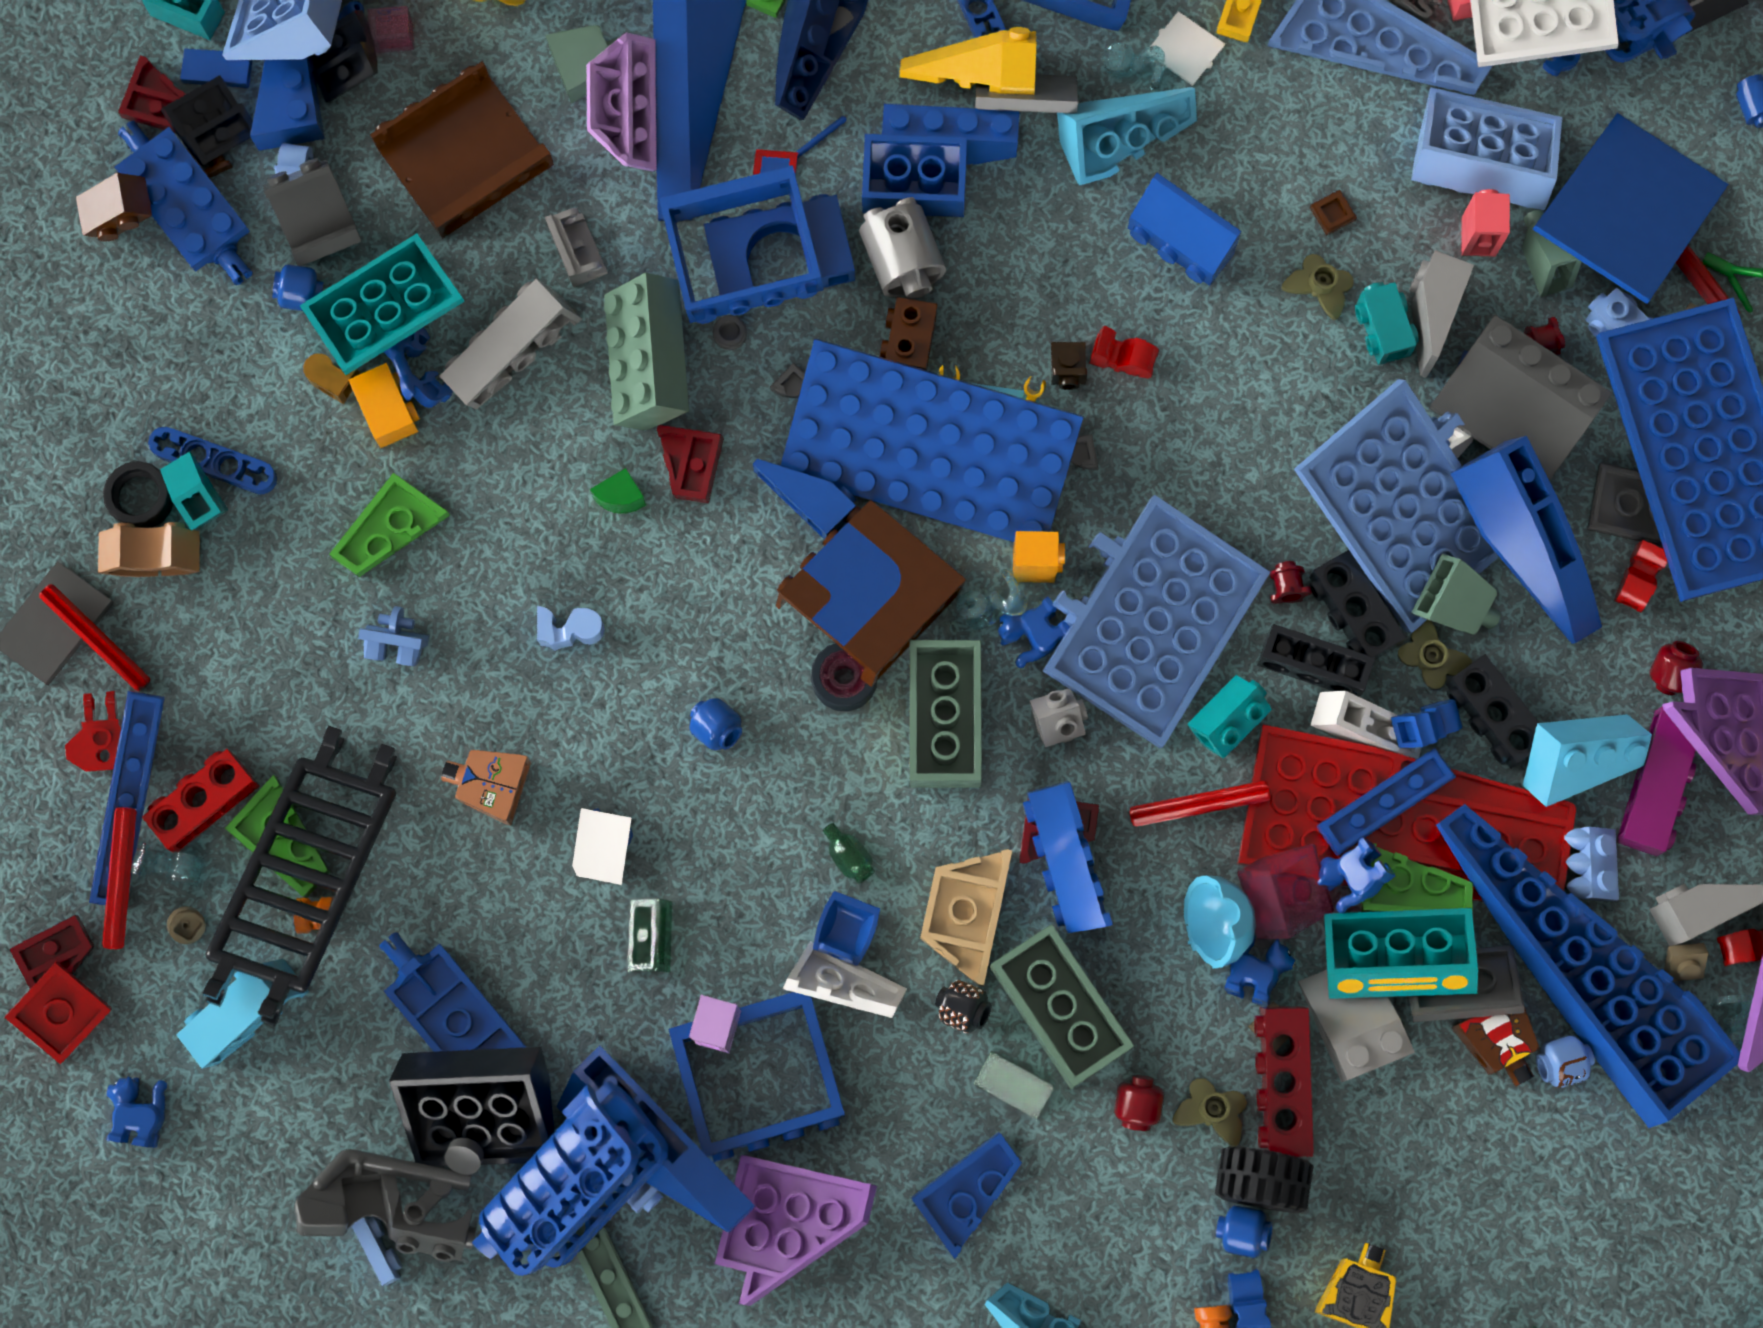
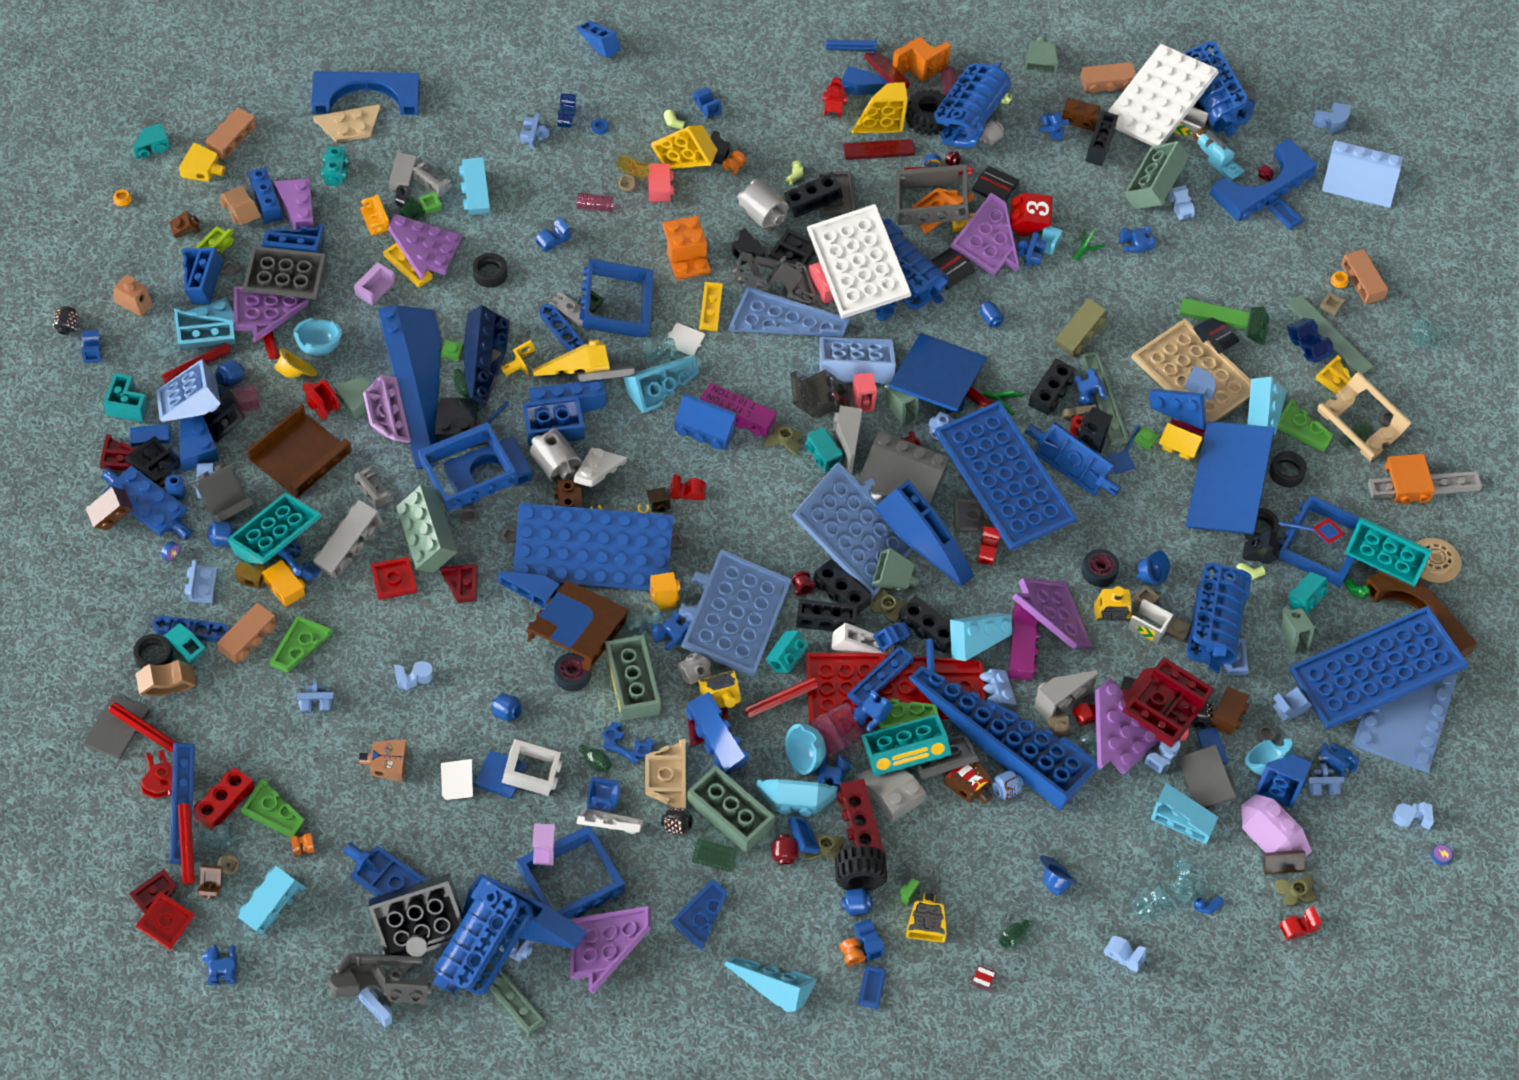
camera: 20 degrees left, 20 degrees down
(148, 954) = (210, 881): none -> bracket
(205, 304) = (170, 551): none -> tile
(235, 182) = (175, 486): none -> blue brick
(245, 375) = (201, 583): none -> light blue bracket
(282, 981) = (295, 868): black bar -> none
(303, 491) = (247, 633): none -> nougat brick
(517, 54) = (321, 398): none -> red hinge
(574, 430) = (393, 578): none -> red plate
(618, 494) = (426, 604): green brick -> none
(650, 935) = (494, 821): clear green slope -> none
(680, 848) = (492, 775): none -> blue tile
(698, 840) = (529, 782): none -> white window
(743, 137) = (455, 417): none -> black slope
(768, 63) = (460, 383): none -> clear green plant
(876, 45) = (518, 363): none -> yellow bracket
(887, 812) = (612, 734): none -> blue helmet
(973, 279) = (597, 465): none -> white wing
(1096, 771) = (723, 688): none -> yellow torso
(1179, 1083) = (803, 835): none -> blue tile
(1181, 1005) = (796, 796): none -> medium azure wedge
(1260, 218) = (748, 413): none -> magenta brick
(1333, 212) = (782, 404): reddish brown tile -> none
(1340, 1230) = (908, 891): none -> bright green plate
(1403, 210) = (818, 393): none -> clear smoke bracket
(1484, 780) = (930, 654): none -> blue bar
(1613, 1257) = (1056, 876): none -> blue piece
(1669, 663) = (1012, 585): dark red head -> none

